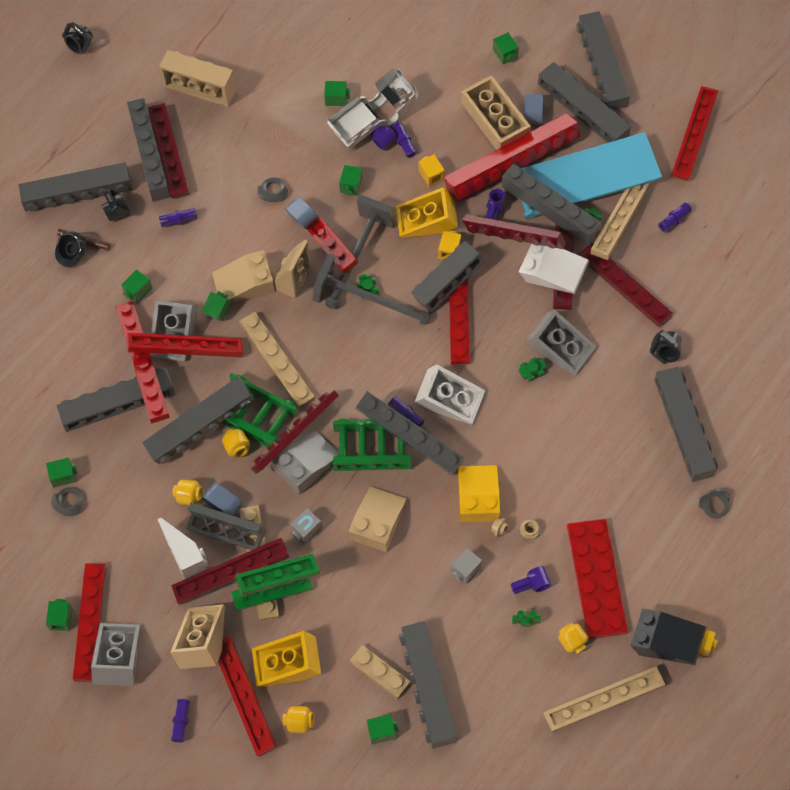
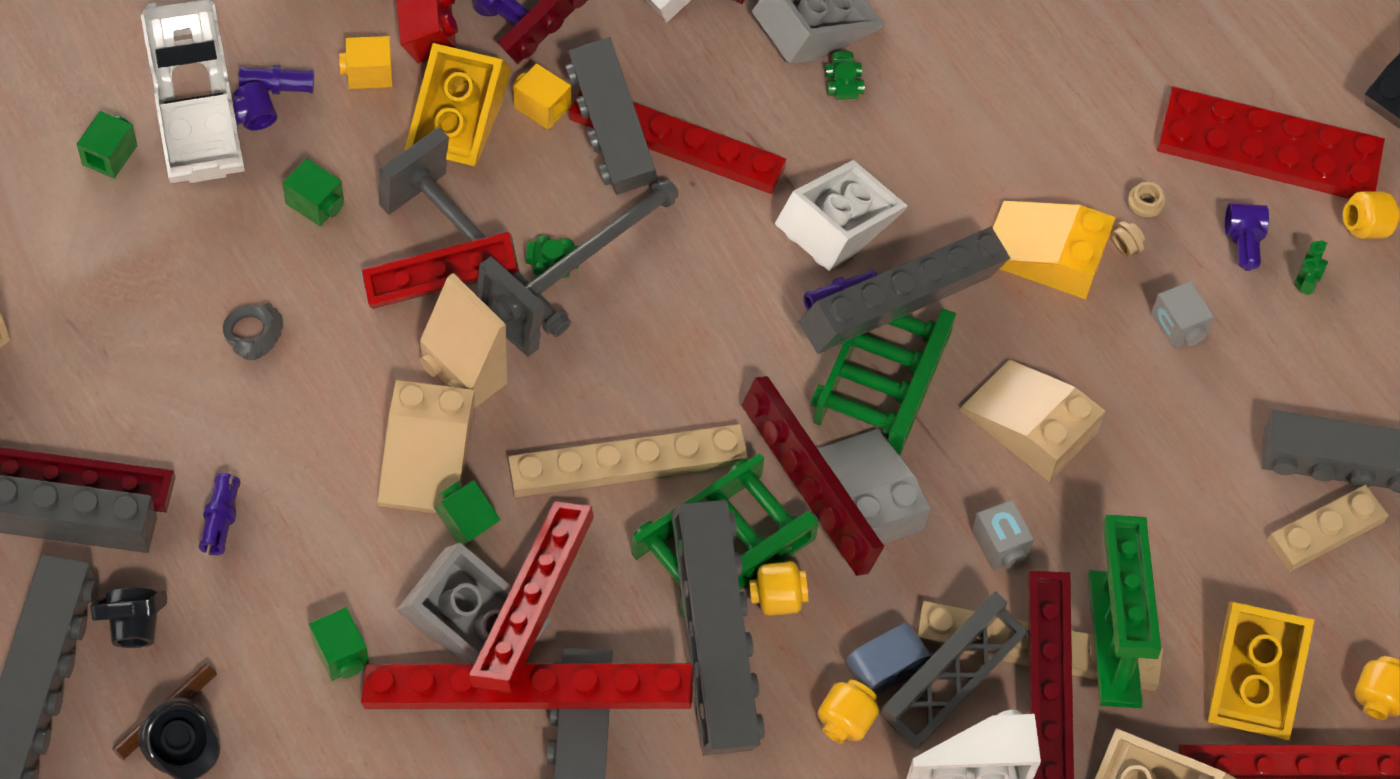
camera: 75 degrees left, 5 degrees down
(301, 212) = (341, 294): sand blue beam -> none

